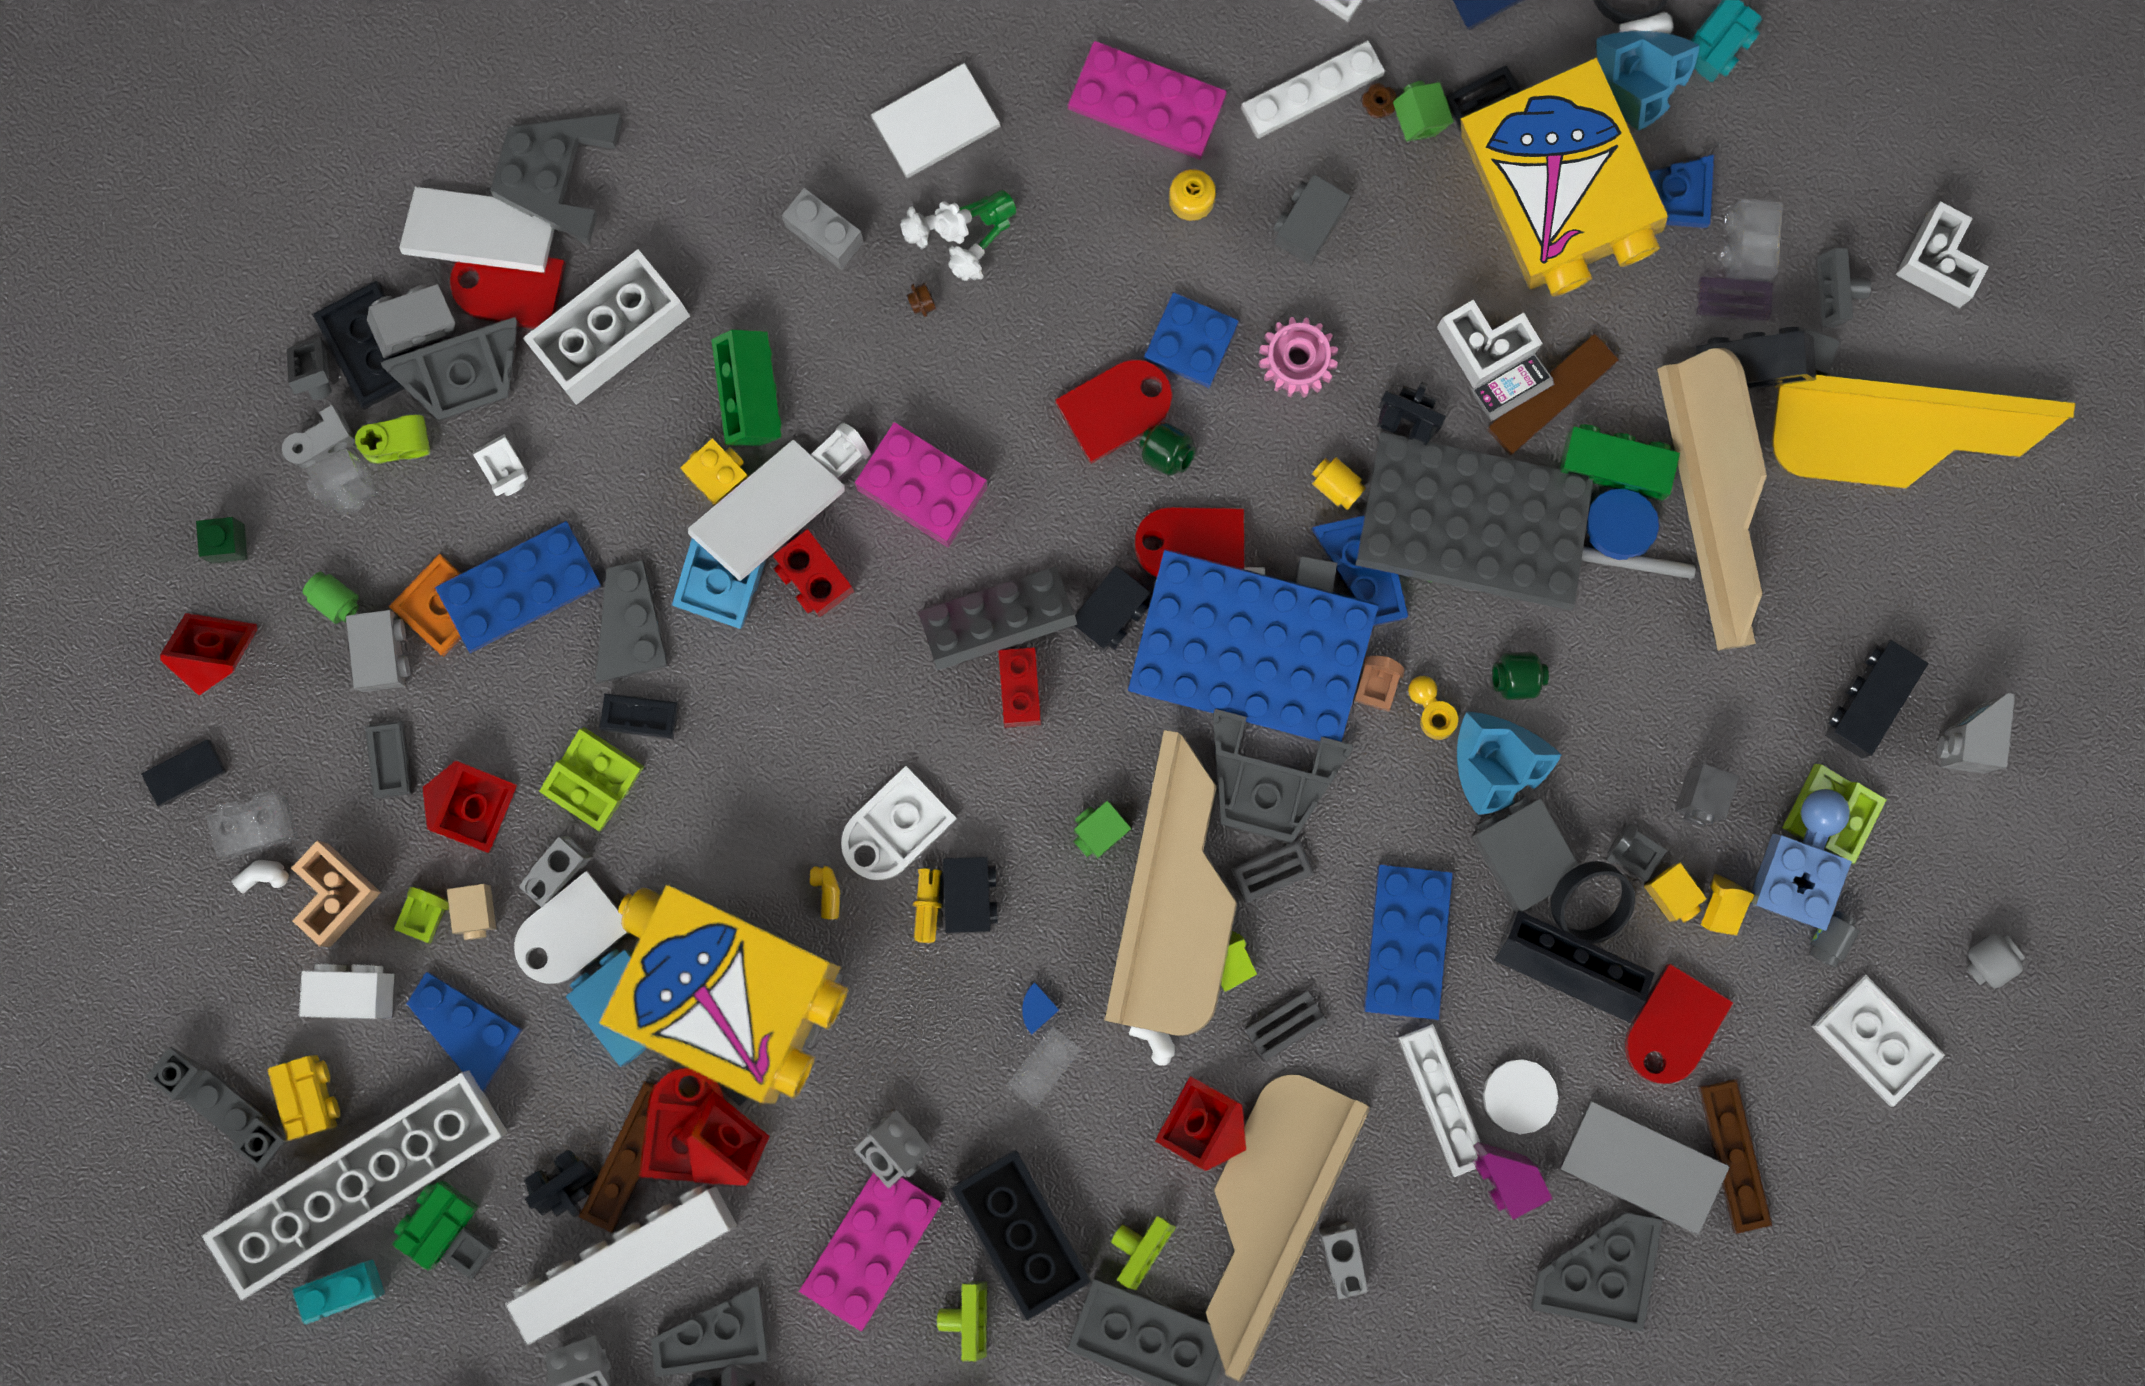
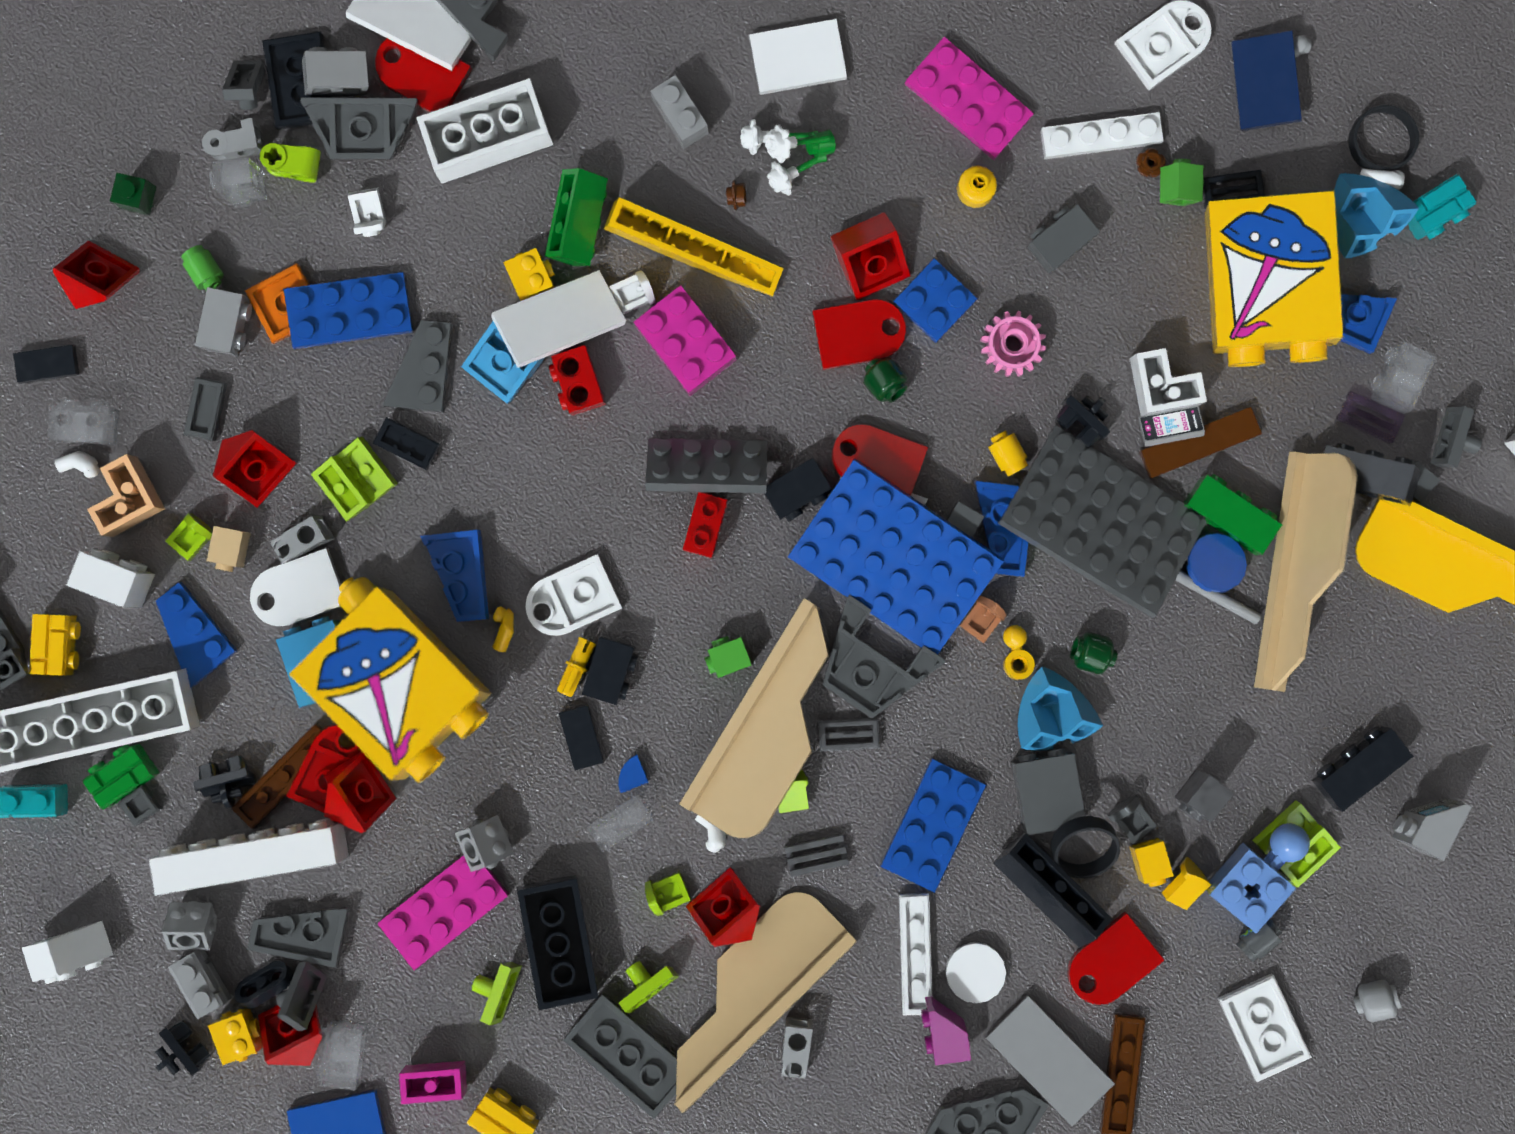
camera: 25 degrees right, 5 degrees up
(754, 841) = (462, 572): none -> blue wing
(890, 375) = (691, 247): none -> yellow slope
(962, 986) = (581, 737): none -> black tile
(1099, 314) = (870, 255): none -> red slope
(1127, 1133) = (666, 893): none -> lime tile

